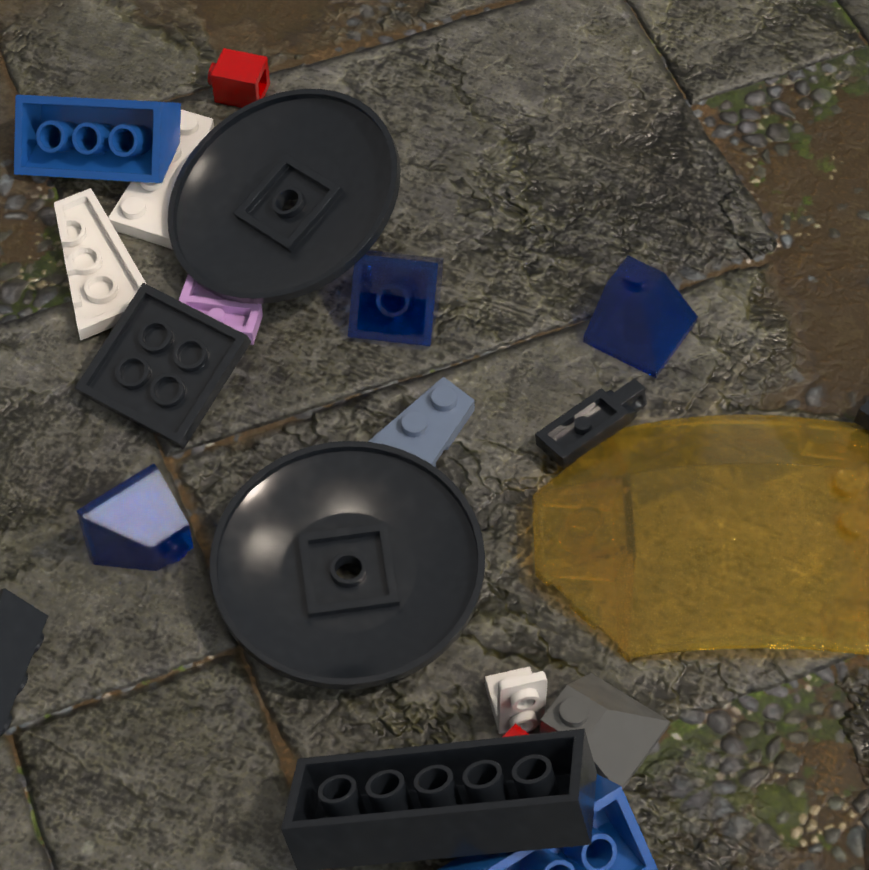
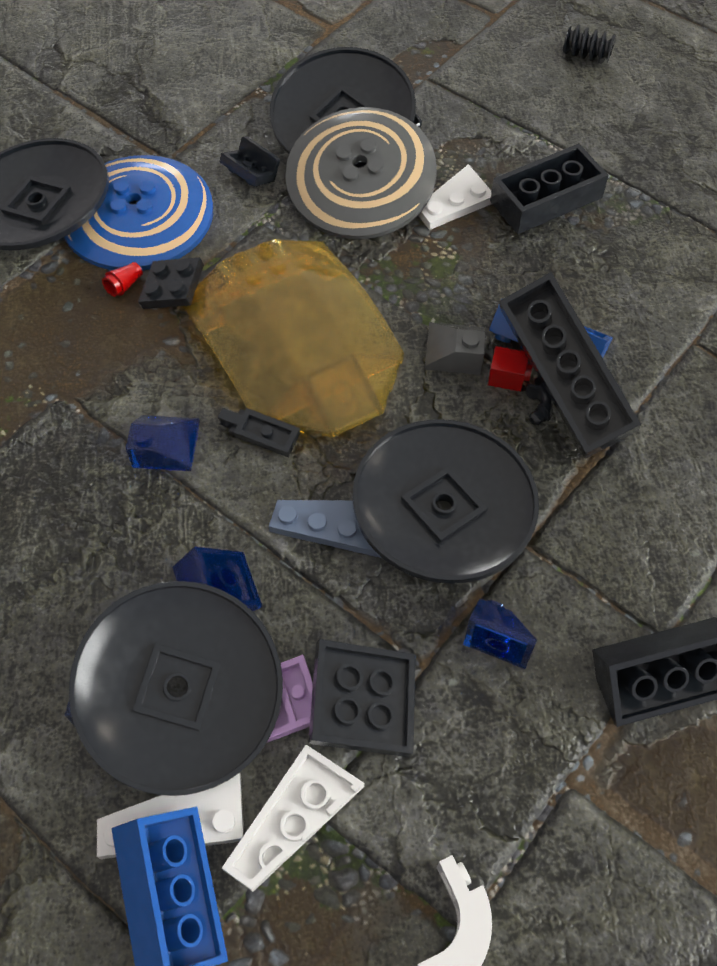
camera: 120 degrees left, 5 degrees up
(239, 78) = (44, 821): red brick -> none
(517, 698) = (473, 383): white bracket -> none

